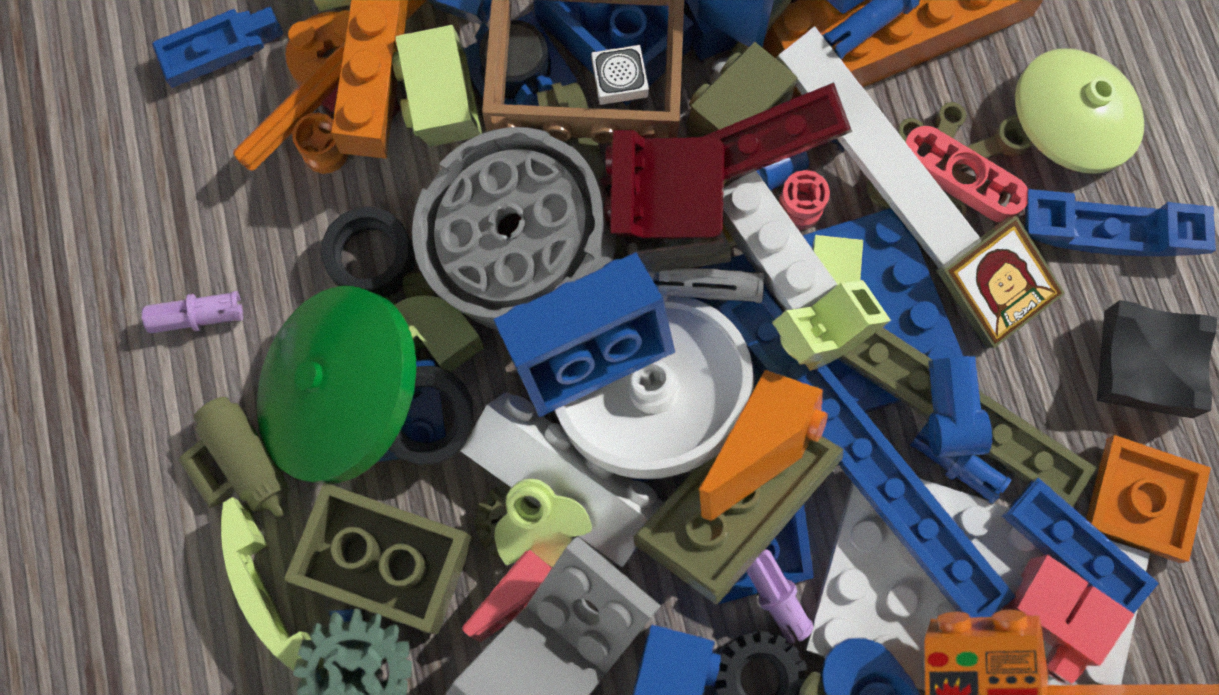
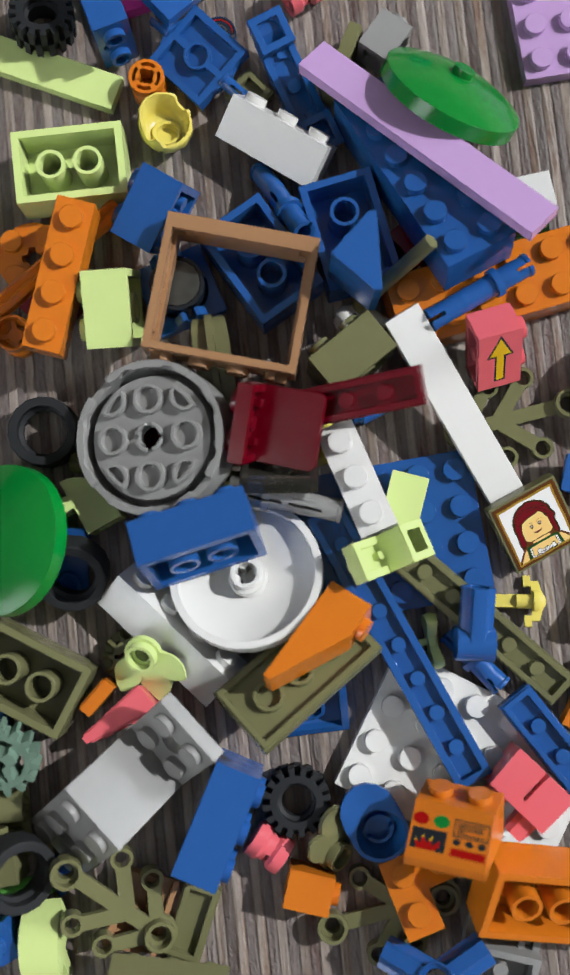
camera: 10 degrees right, 10 degrees up
(477, 575) = (98, 696): none -> orange tile
(620, 74) = (252, 329): tile -> none
(779, 598) = (319, 745): lavender axle -> none
(799, 206) = (389, 441): coral wheel -> none
(894, 427) = (429, 625): none -> yellowish green piece
(914, 74) = (494, 346): none -> coral brick
(984, 169) = (535, 456): coral beam -> none
(1021, 379) = (535, 601): none -> light yellow piece

